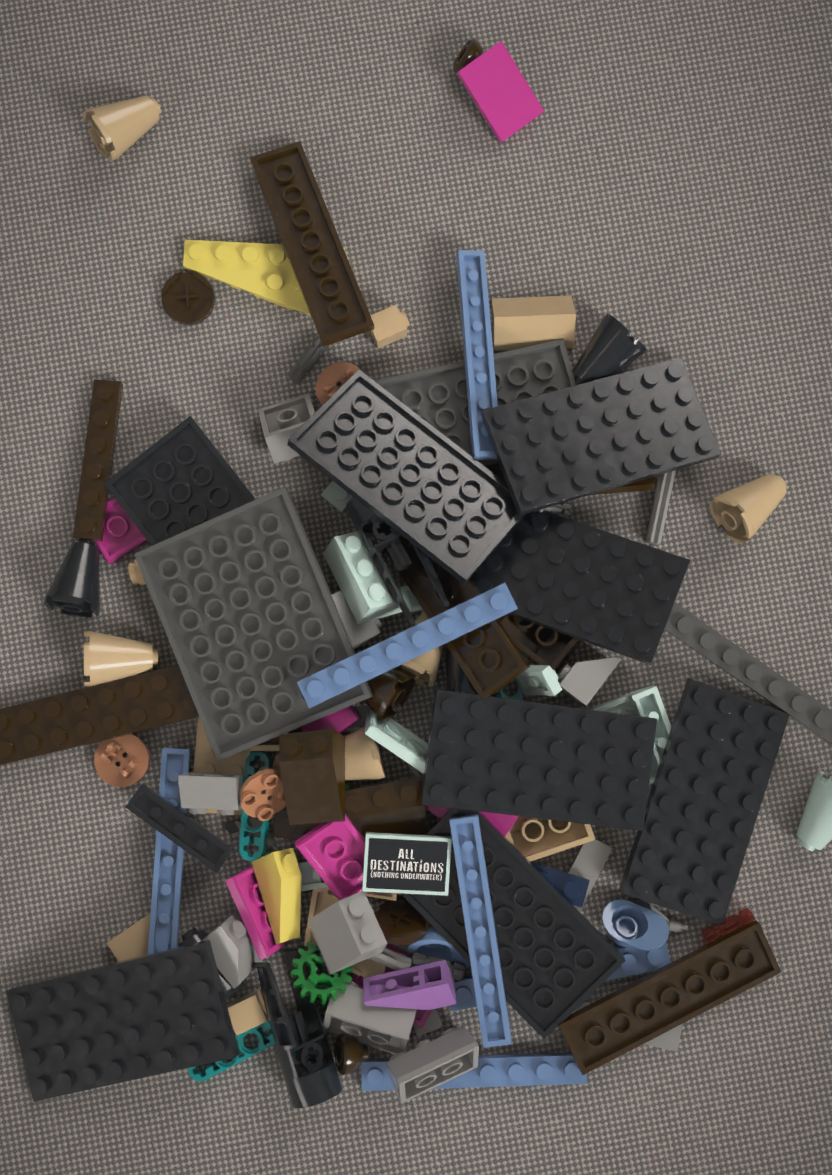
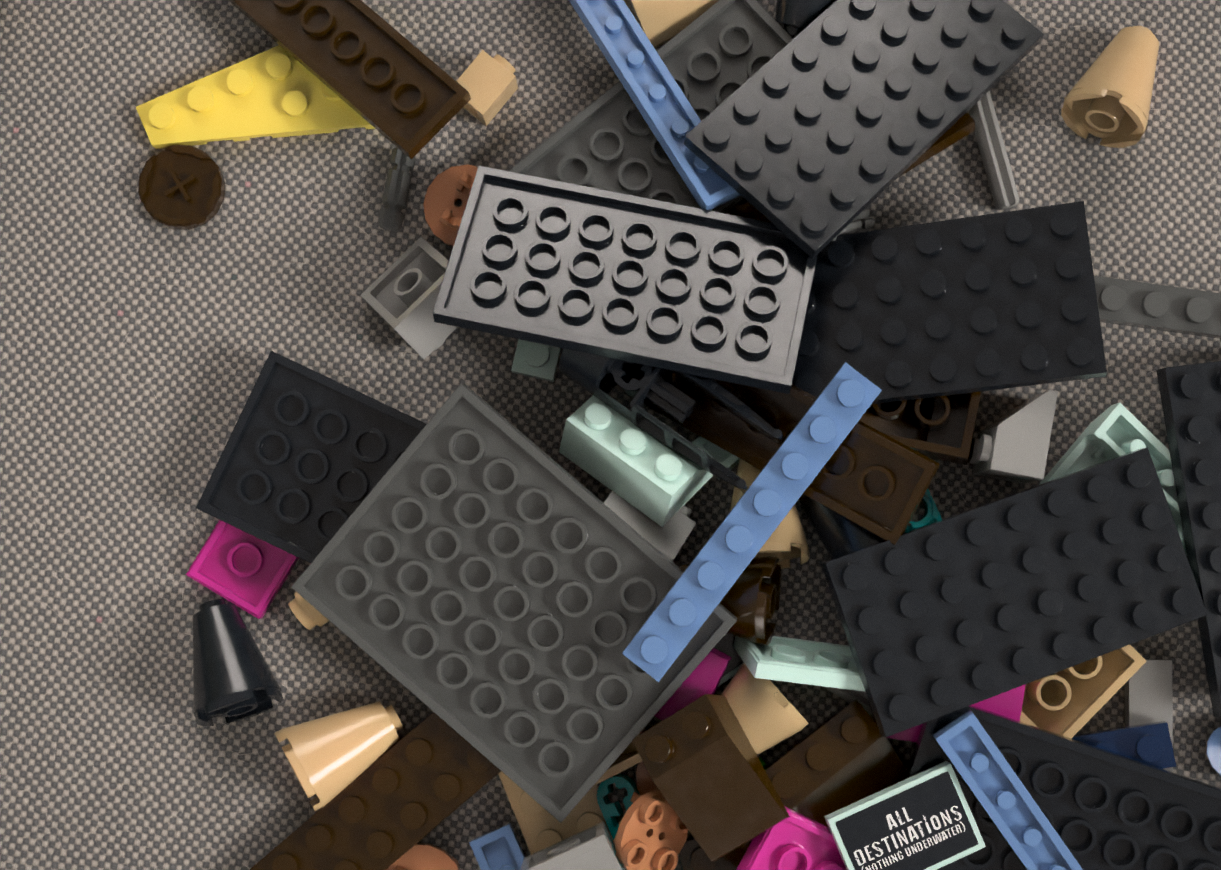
camera: 25 degrees left, 0 degrees up
(98, 460) = (170, 480): dark brown plate -> none
(539, 681) = (960, 477): light aqua plate -> none

